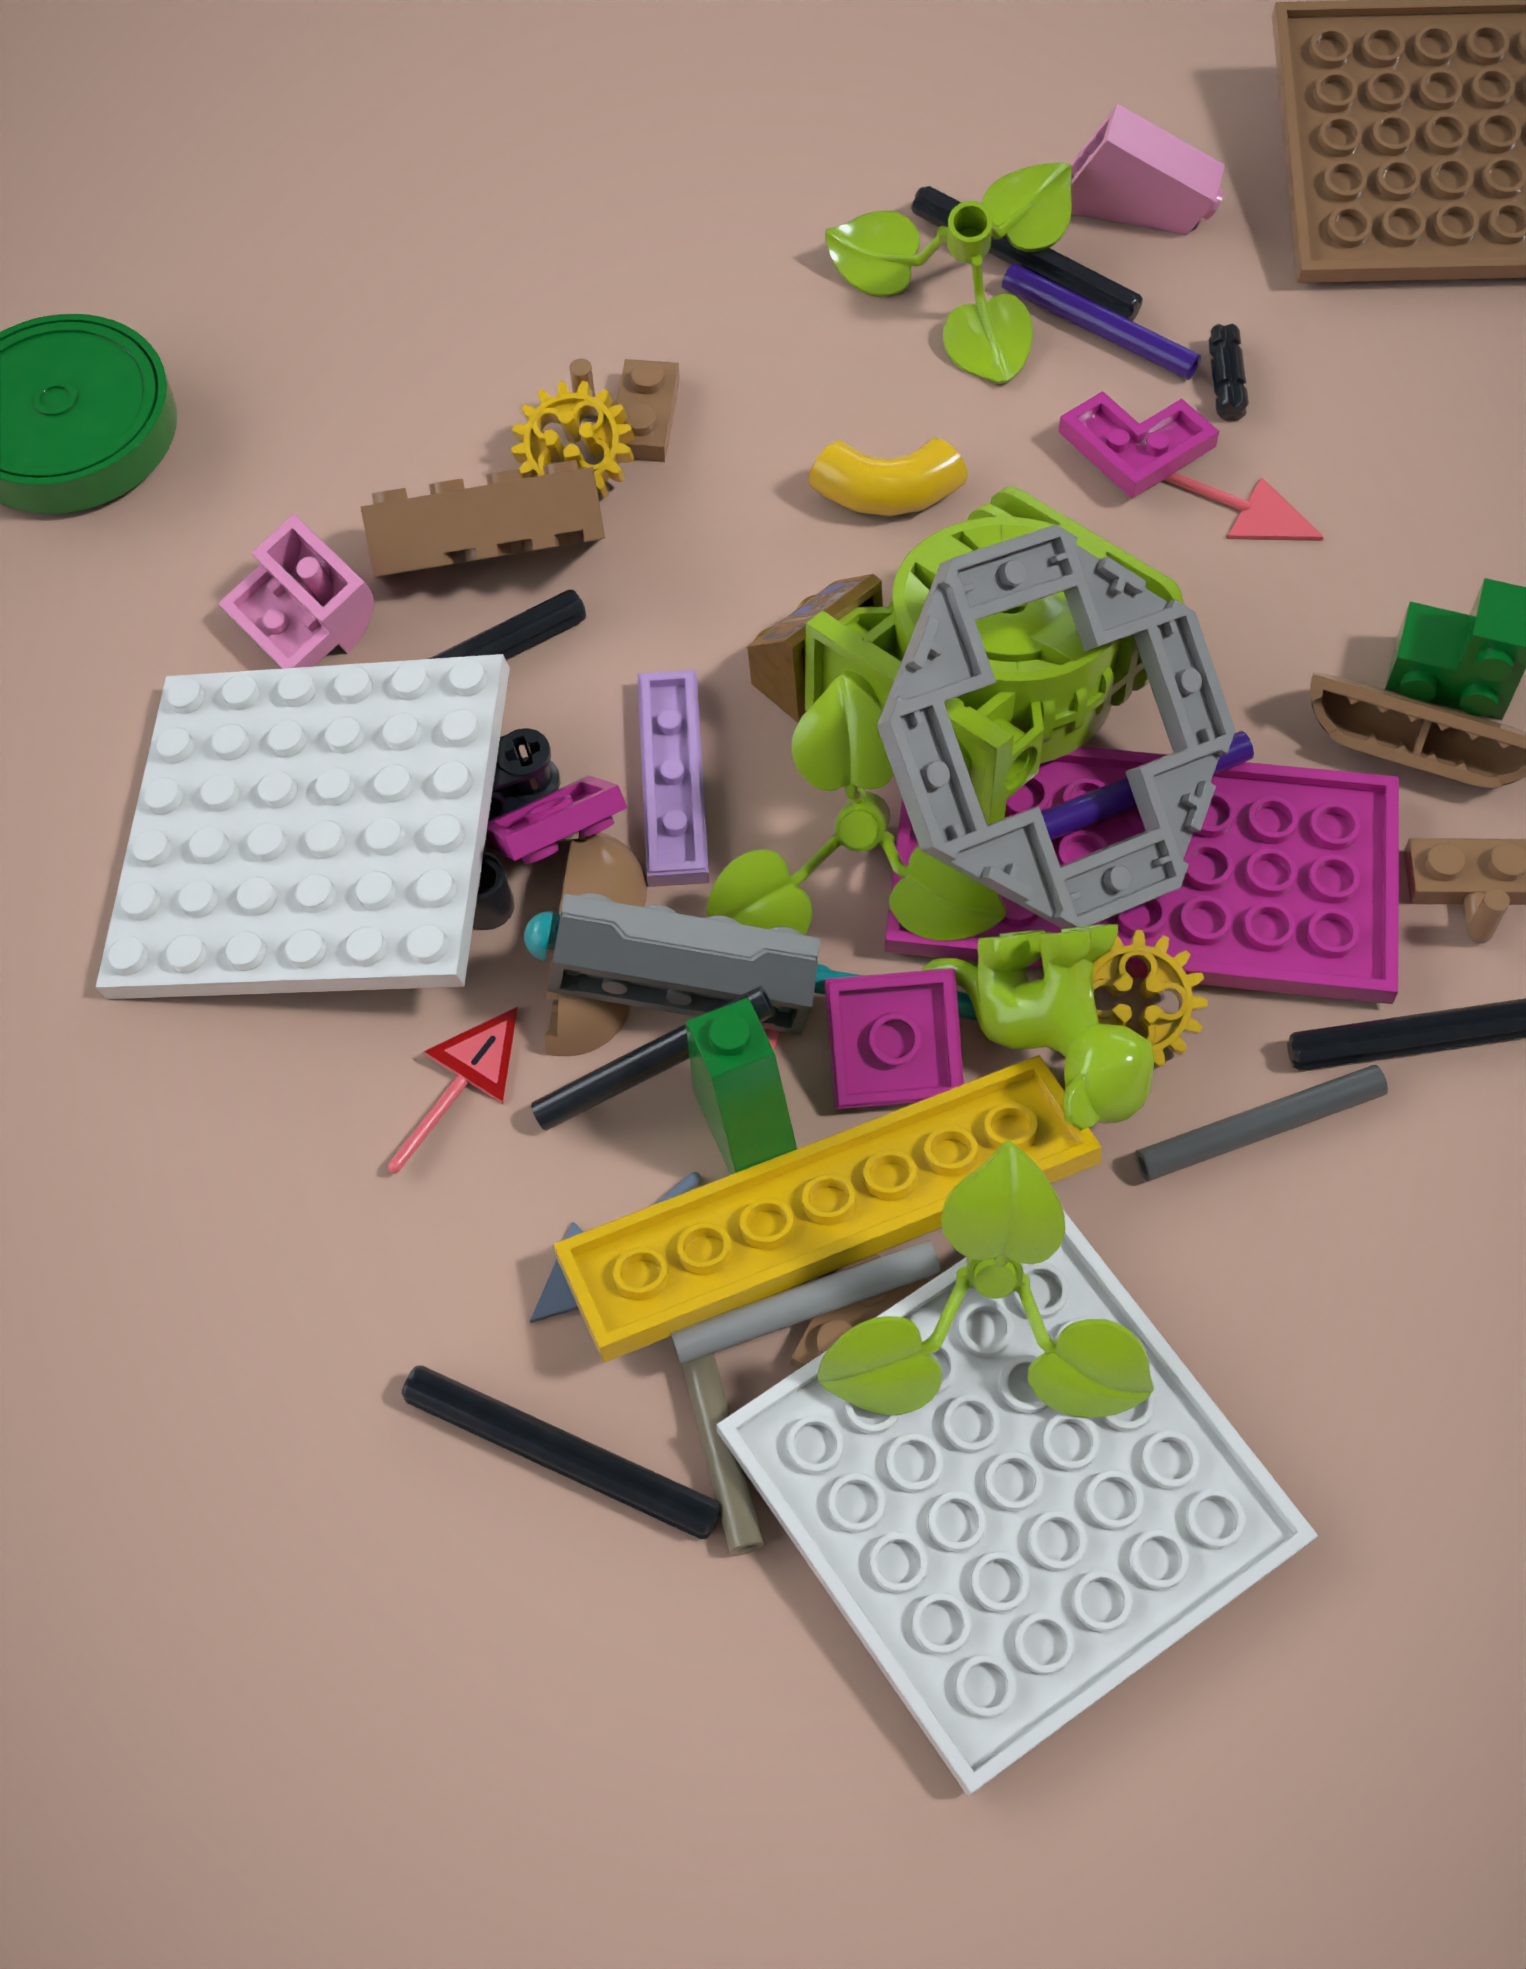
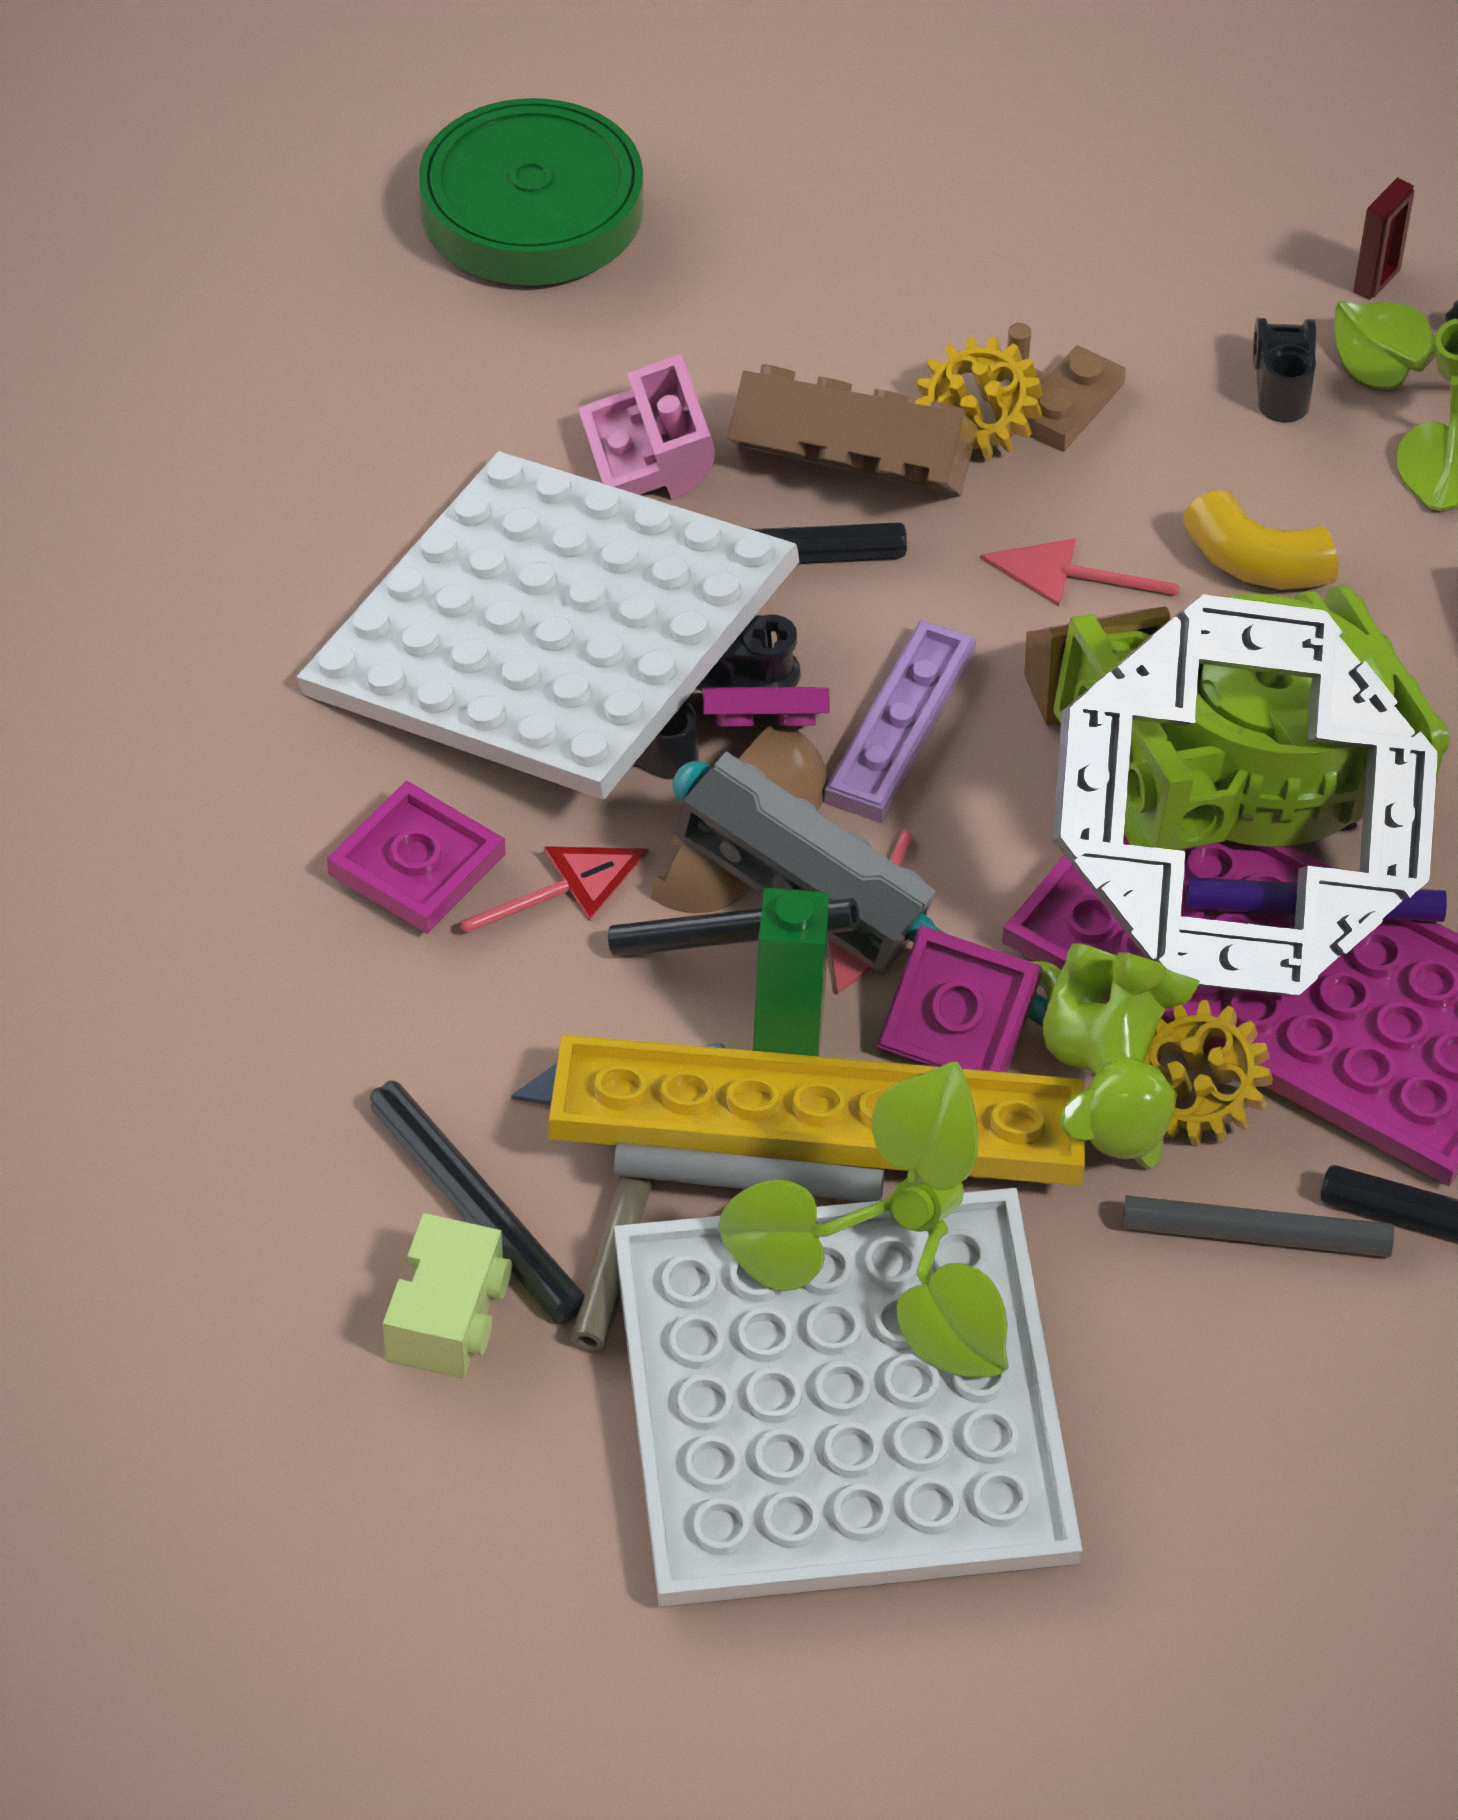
camera: 25 degrees right, 10 degrees down
(310, 1120) = (416, 856): none -> dark pink plate
(599, 1599) = (445, 1308): none -> yellowish green brick
(713, 577) = (1048, 565): none -> coral piece
(810, 306) = (1284, 368): none -> black piece
(833, 749) = (1026, 737): lime plant -> none
(834, 158) = (1384, 238): none -> dark red tile

